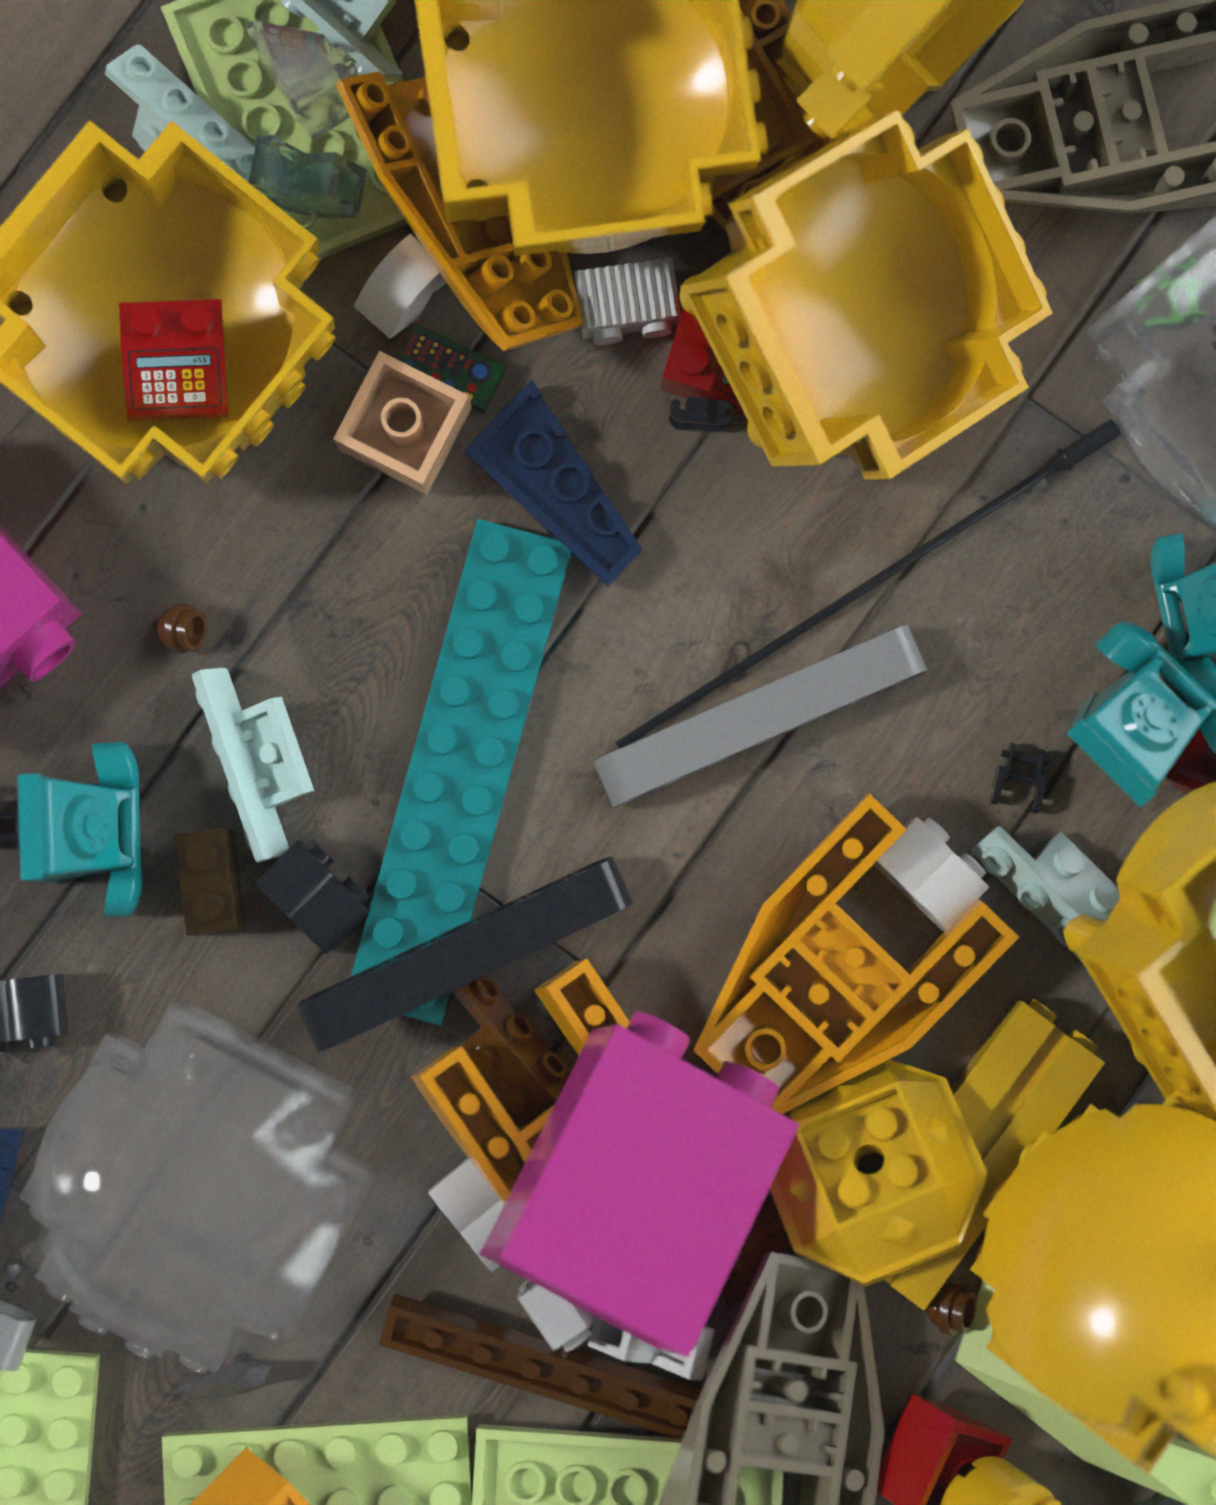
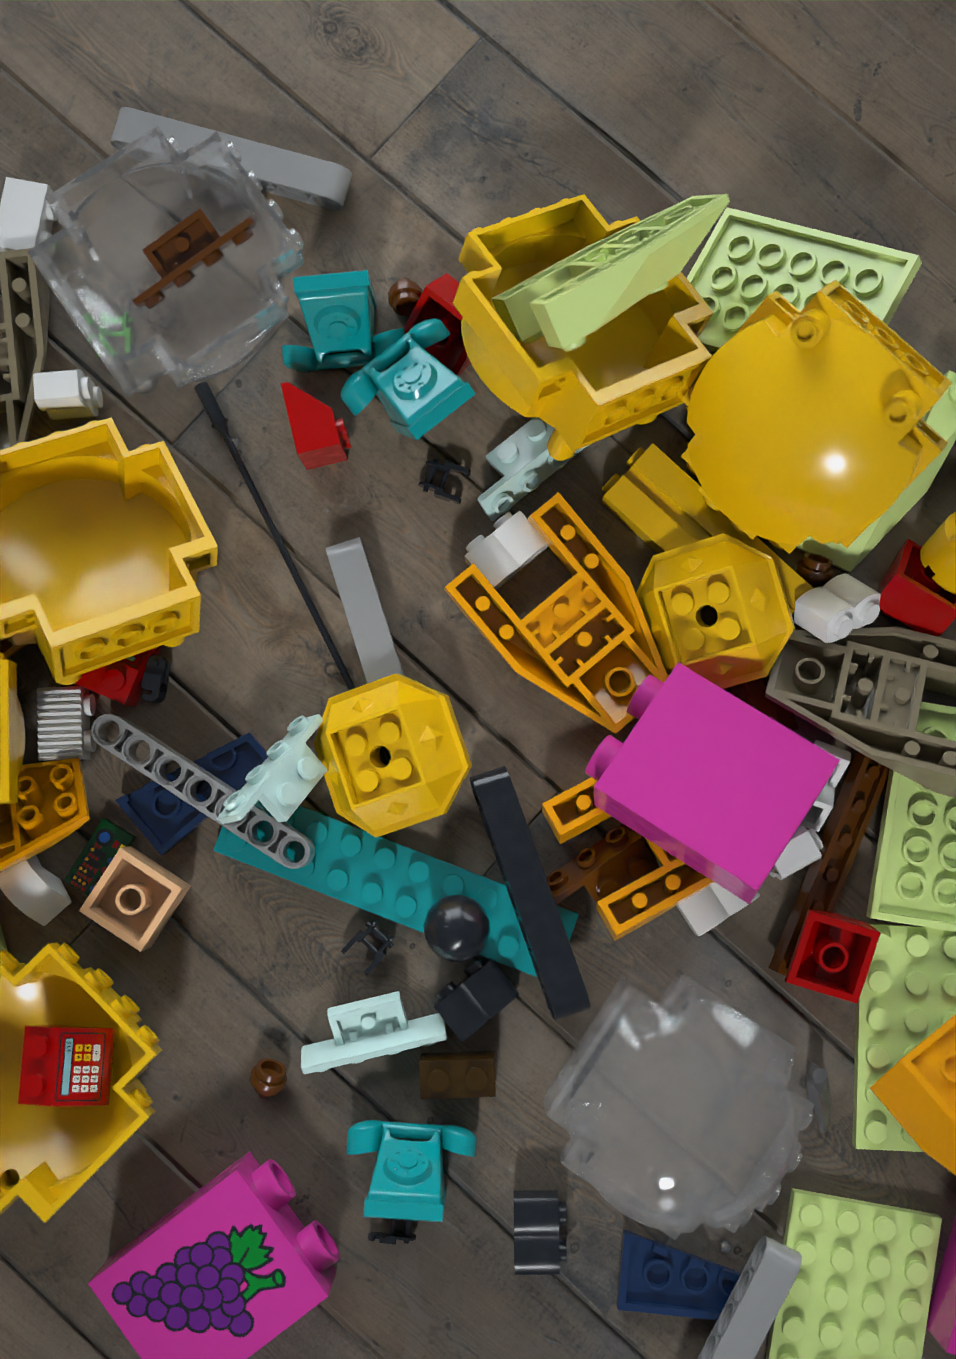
camera: 75 degrees left, 0 degrees up
(360, 758) = (378, 954): none -> black piece
(406, 859) = (456, 928): none -> black piece
(421, 1379) = (833, 955): none -> red slope
(560, 473) = (186, 784): none -> light grey beam
(584, 601) = (282, 778): none -> light aqua bracket
(640, 790) = (424, 749): none -> yellow piece
(901, 1343) = (837, 608): none -> white brick
(1069, 592) = (315, 430): none -> red slope
(1078, 248) = (67, 394): none -> white brick

